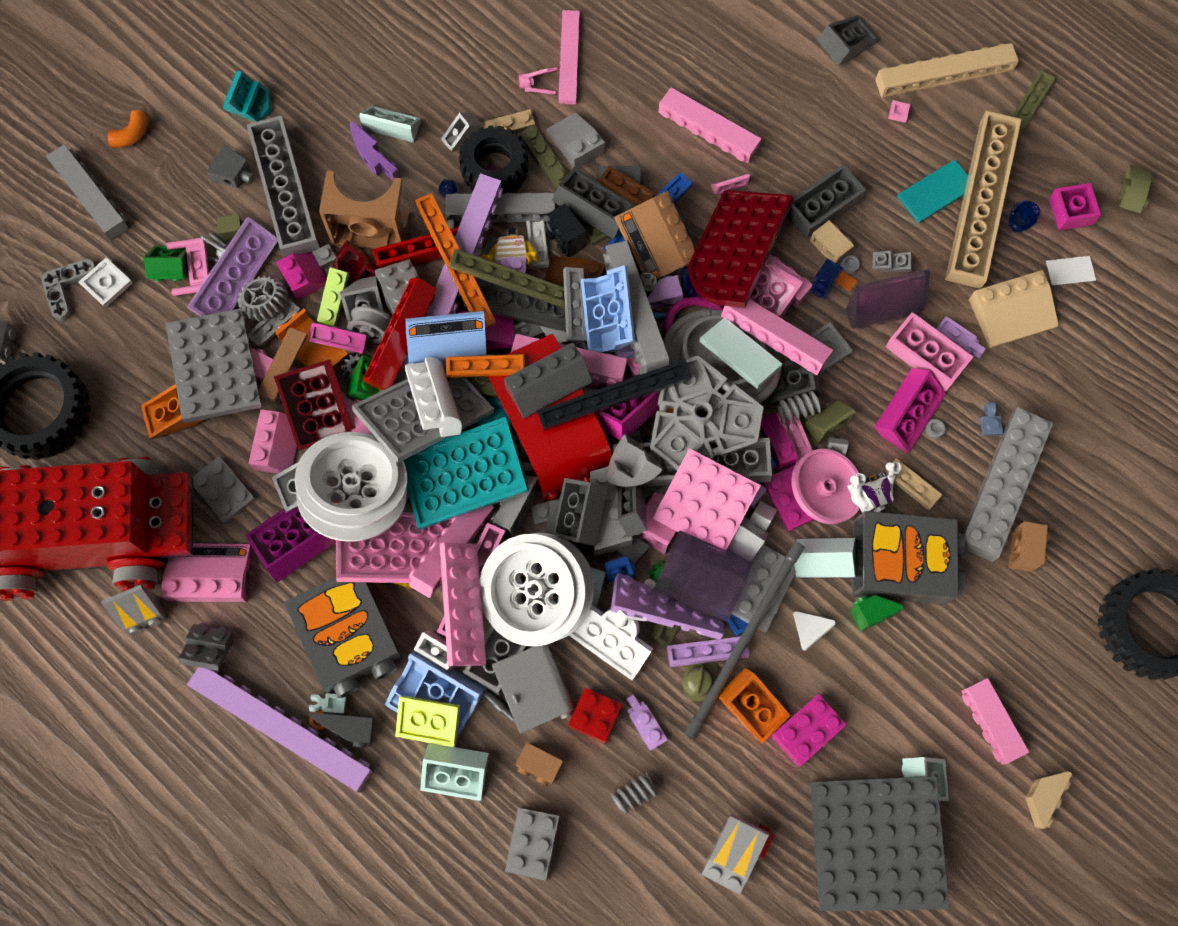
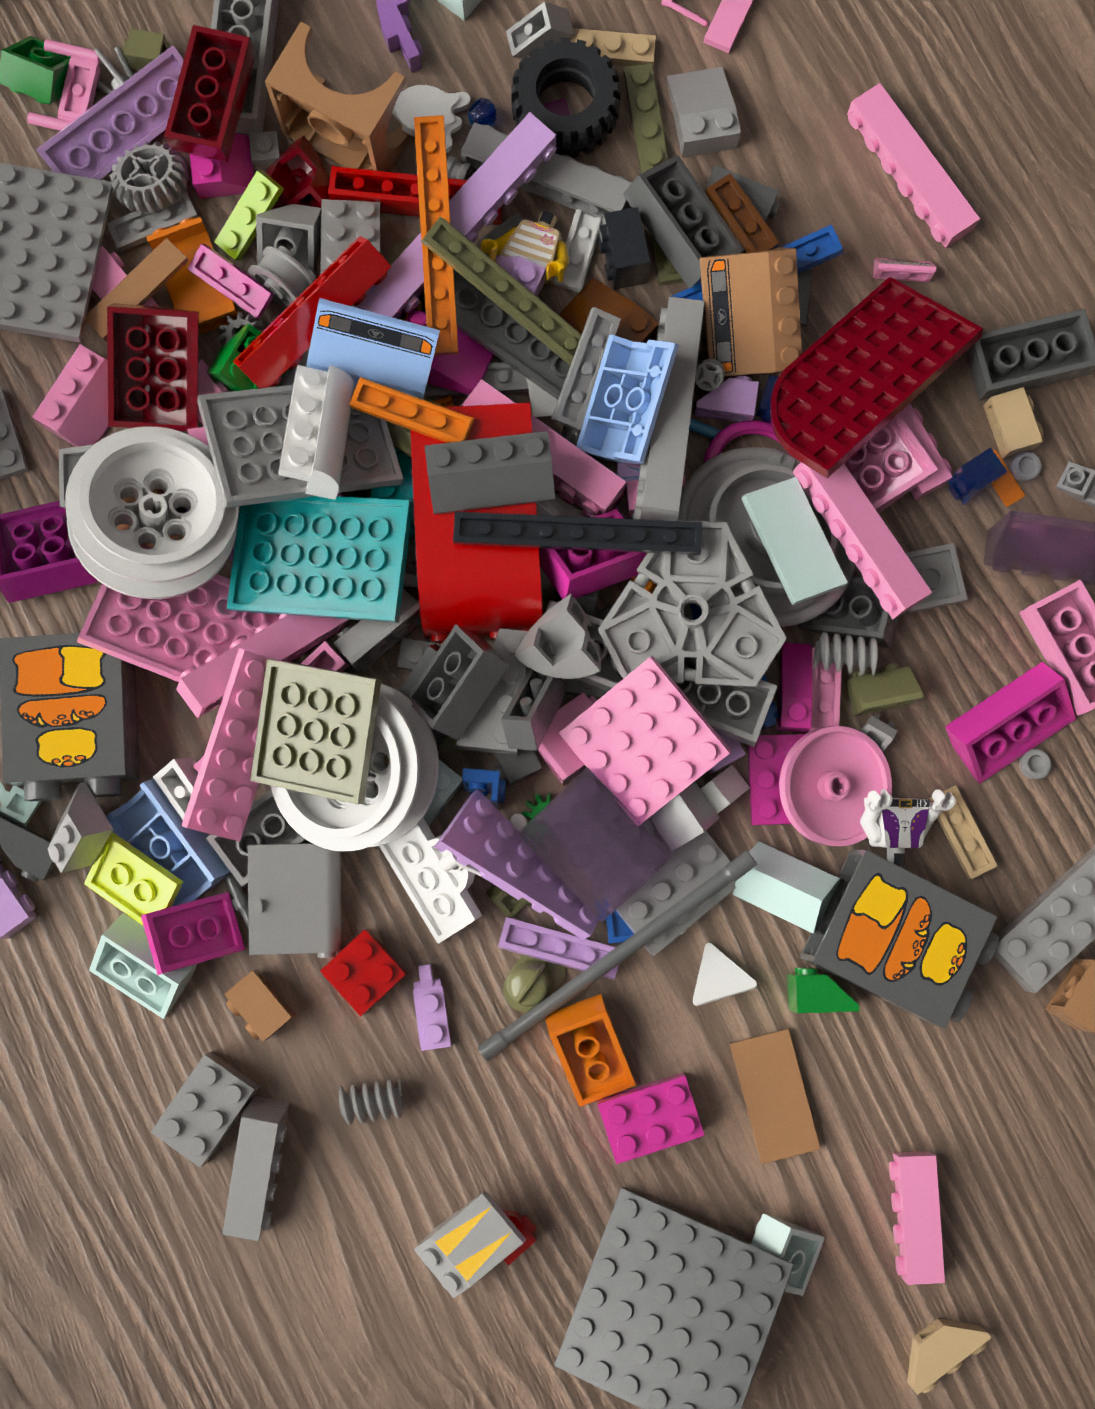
camera: 25 degrees right, 10 degrees up
(283, 234) = (210, 93): none -> dark red brick
(382, 701) = (79, 832): none -> light grey slope
(412, 192) = (430, 101): none -> white tile
(478, 735) = (192, 933): none -> dark pink plate
(508, 573) = (315, 730): none -> plate
(580, 868) = (255, 1168): none -> light grey wedge
(876, 686) = (774, 1096): none -> medium nougat tile

